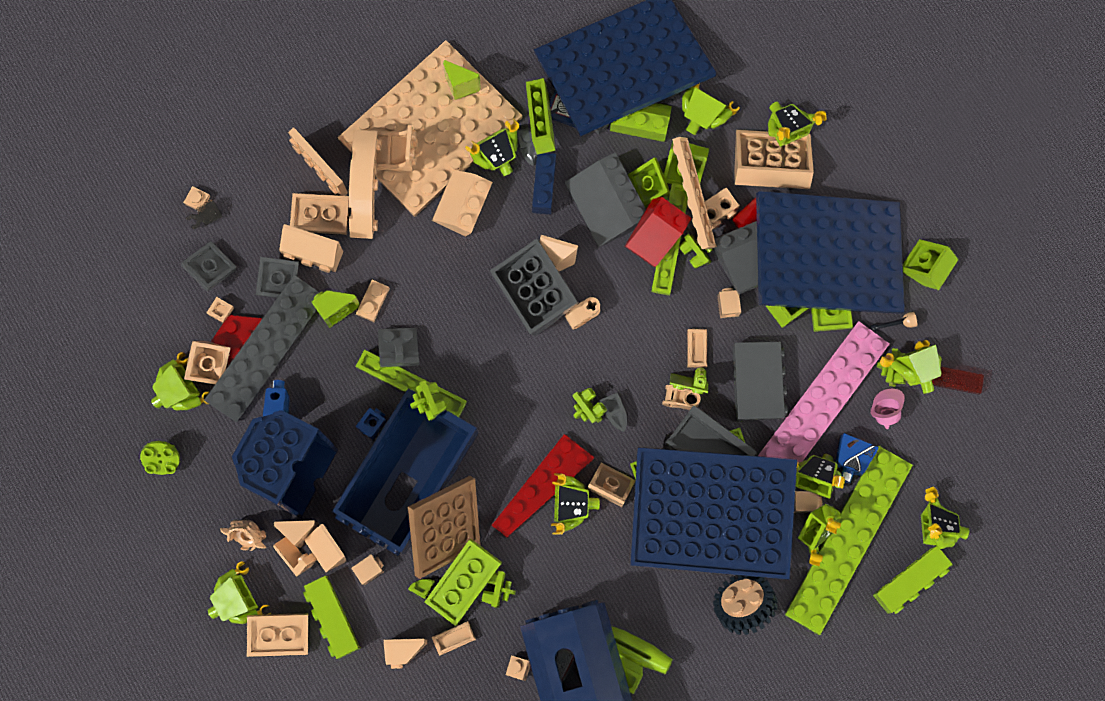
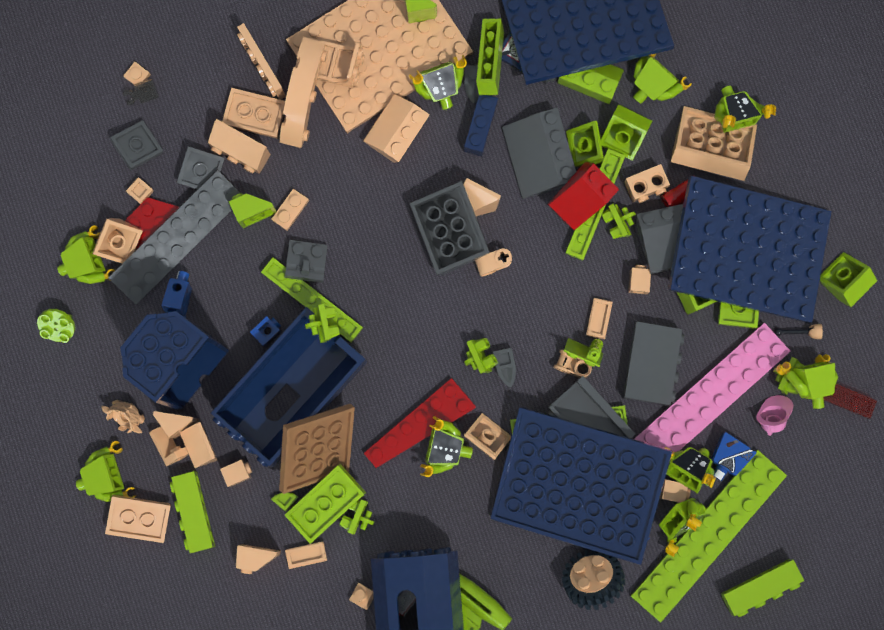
camera: 15 degrees right, 5 degrees up
(695, 197) = (626, 159): light nougat plate -> none
(940, 525) = (800, 539): torso -> none

